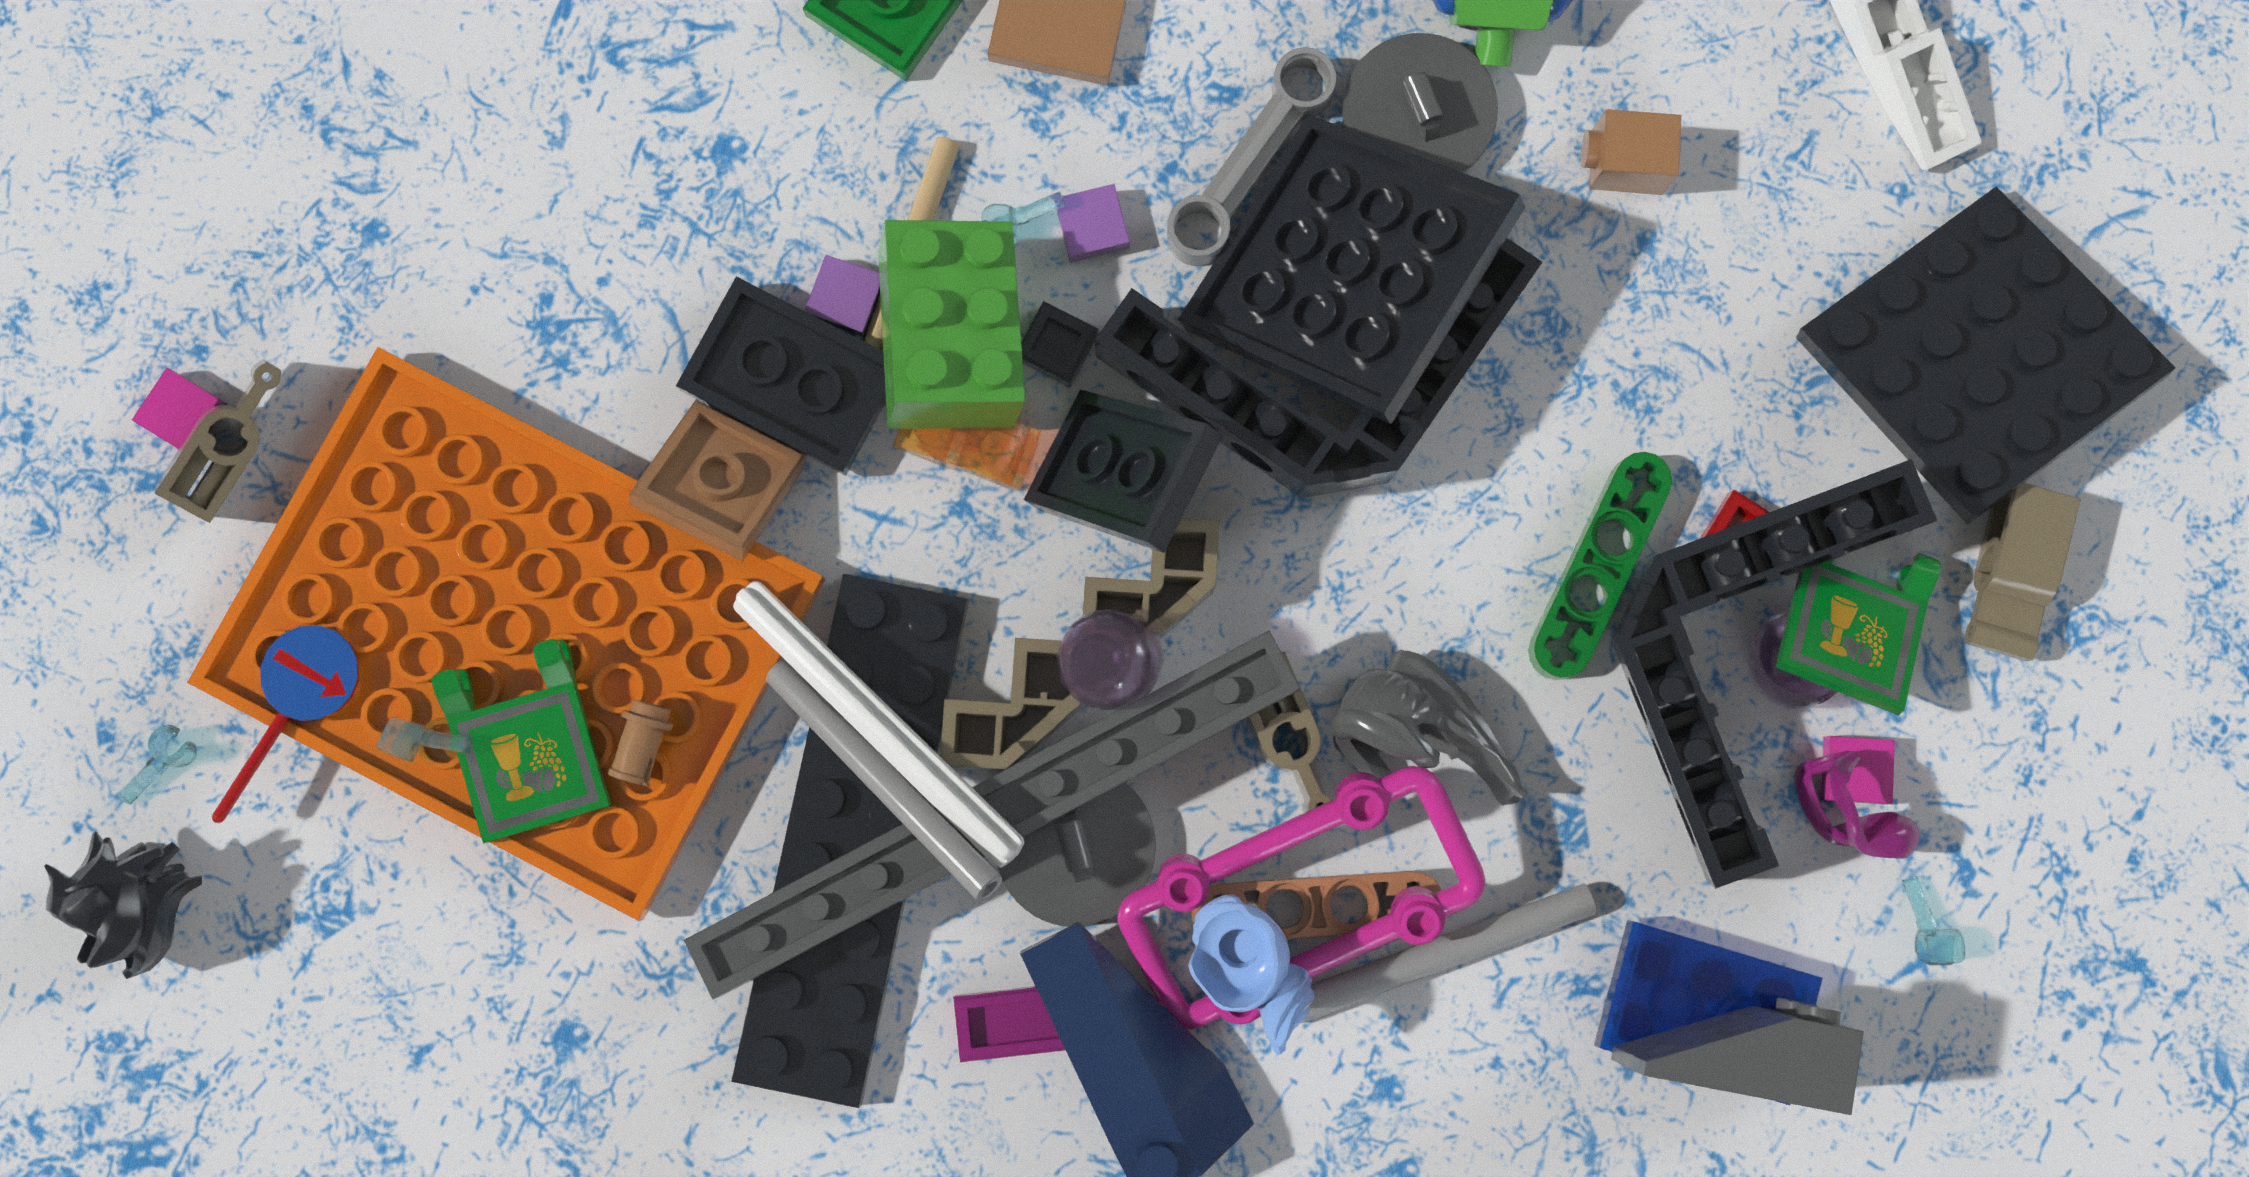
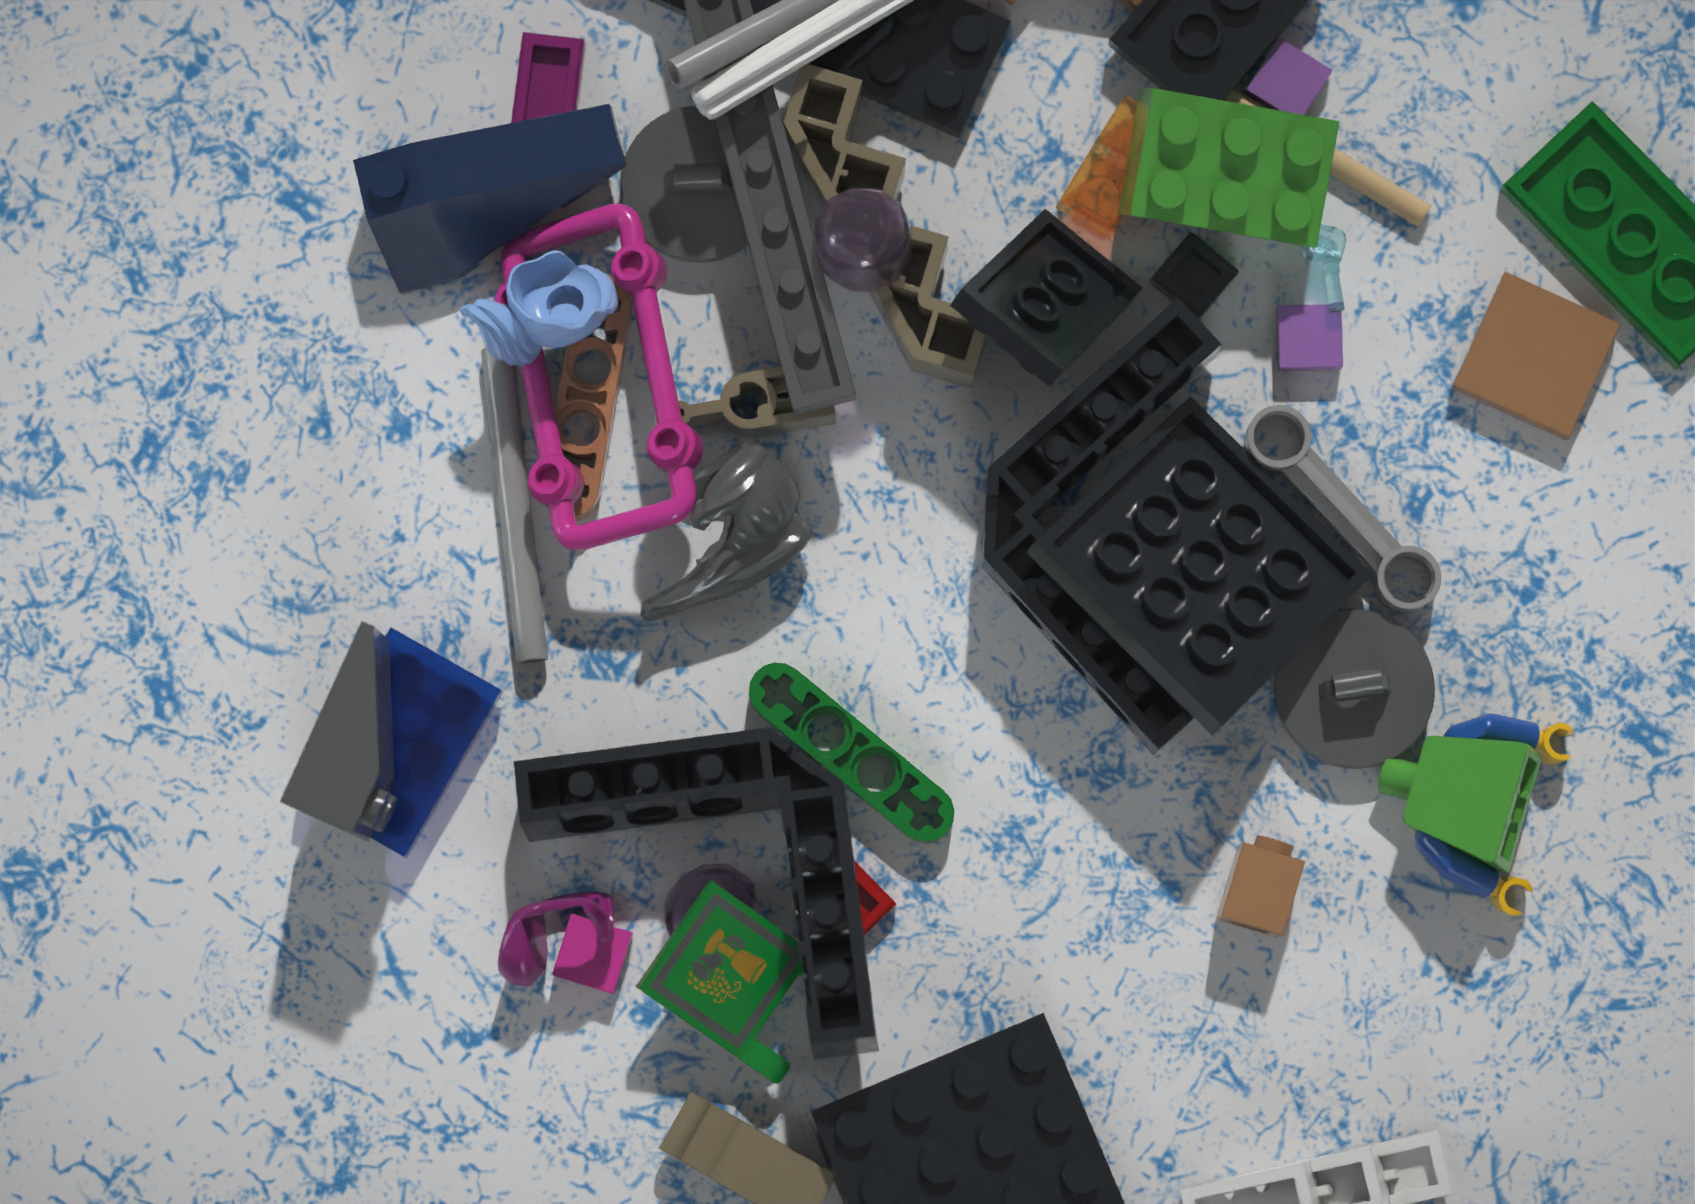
camera: 105 degrees right, 0 degrees up
(1932, 944) = (406, 984): clear light blue hand -> none

